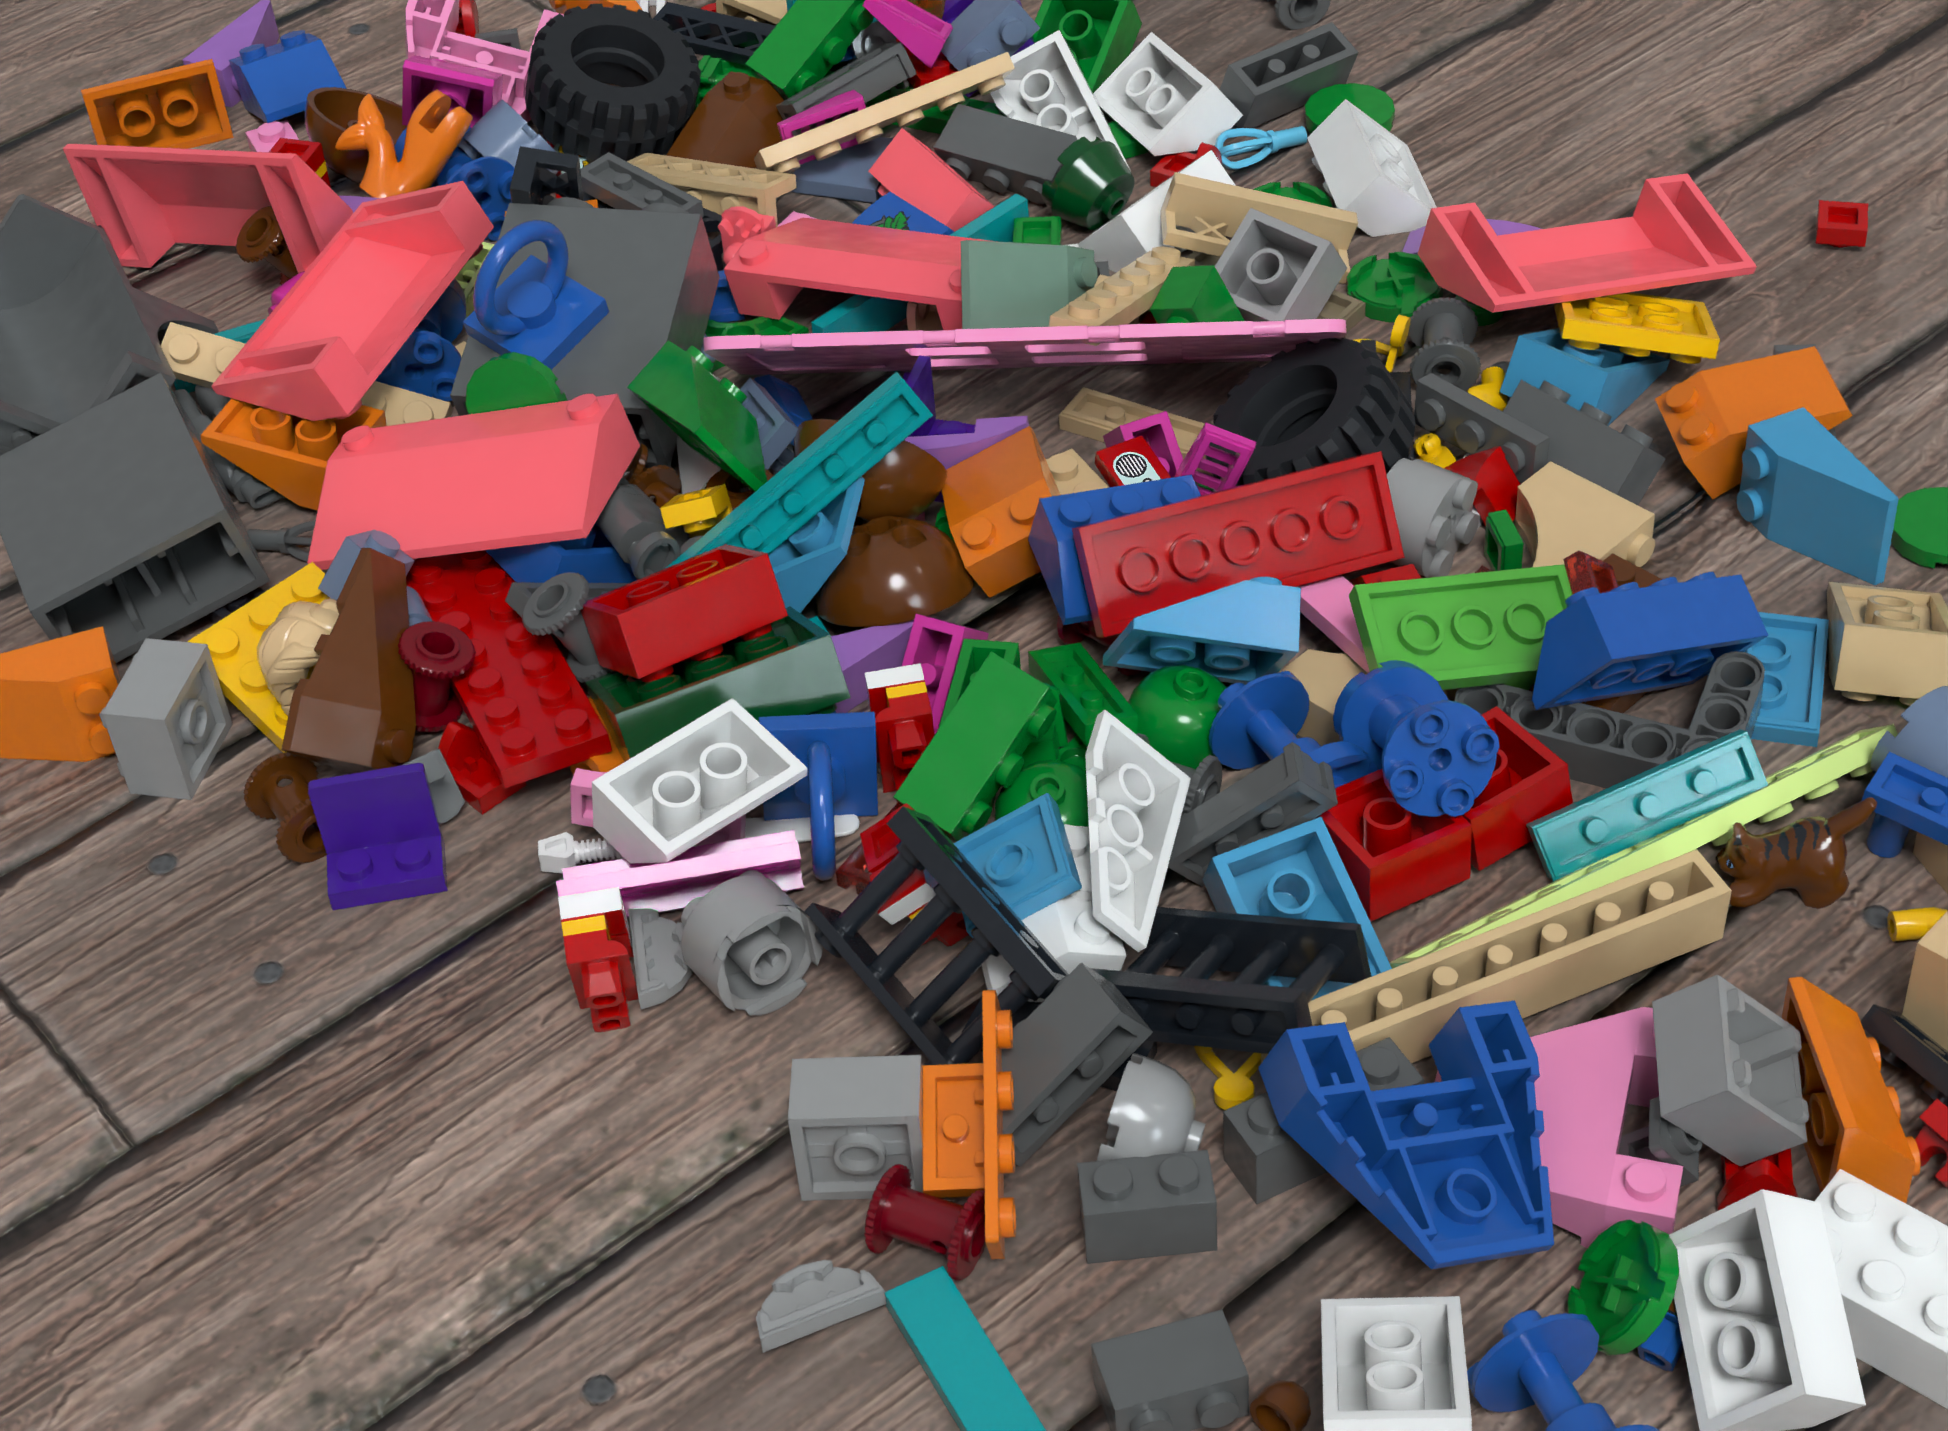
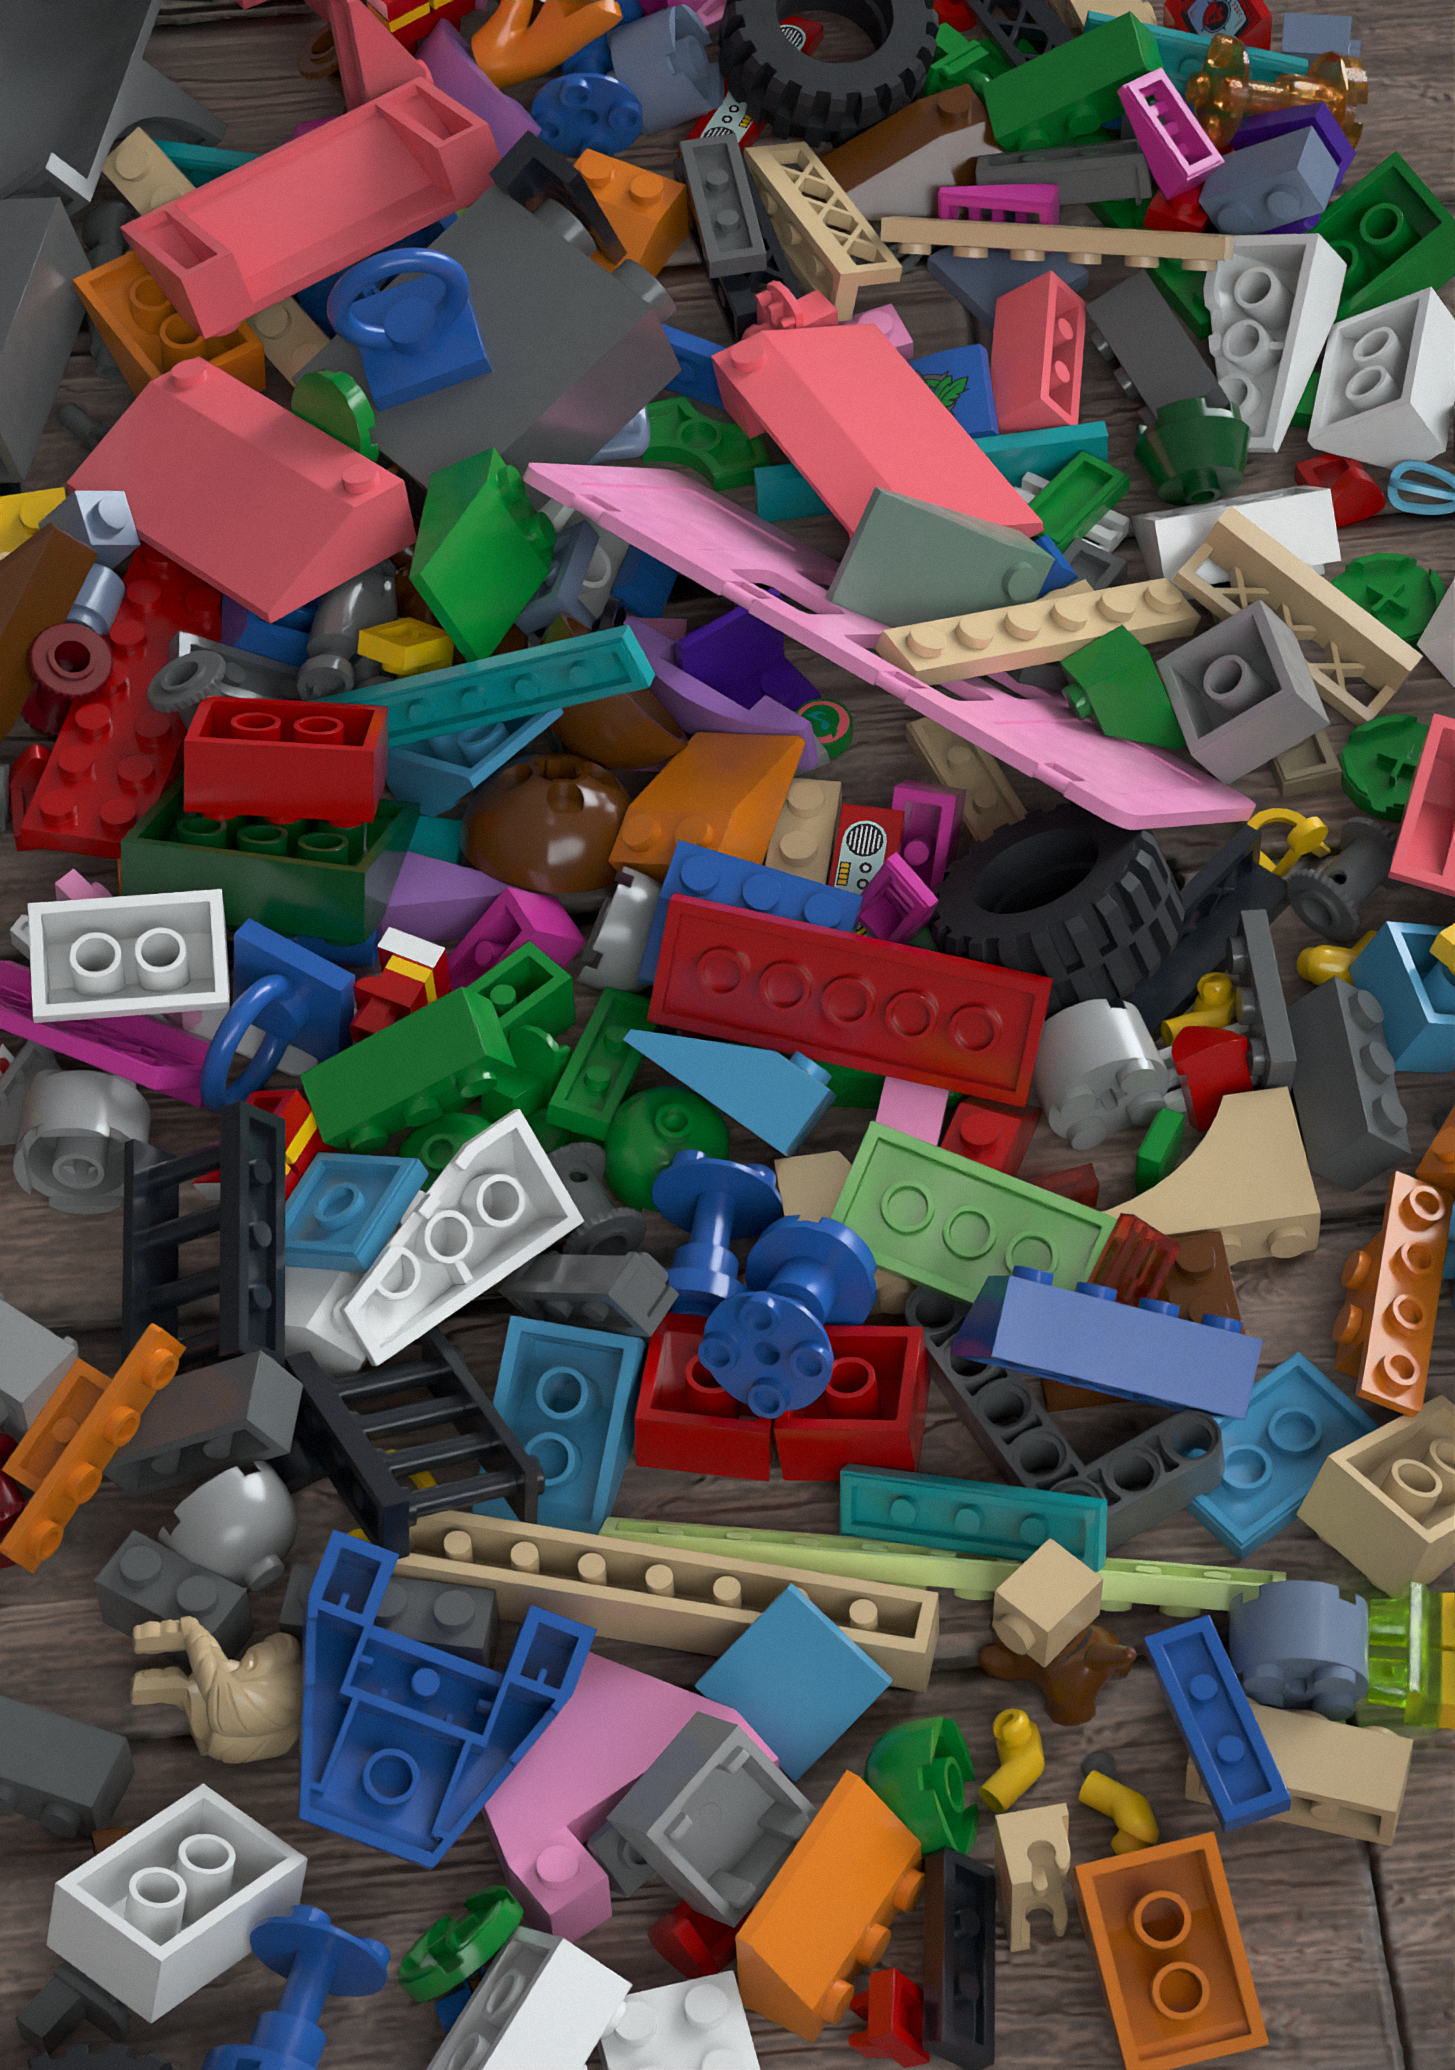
camera: 35 degrees right, 10 degrees up
(1014, 605) = (621, 934): none -> light grey cylinder
(1286, 1201) = (232, 1706): none -> tan hair
(1651, 953) = (795, 1680): none -> dark azure tile
(1743, 538) = (1395, 1297): none -> orange bracket
(1777, 809) = (1046, 1603): none -> tan brick
(1801, 951) = (922, 1778): none -> green cylinder
(1831, 937) = (1019, 1757): none -> yellow arm

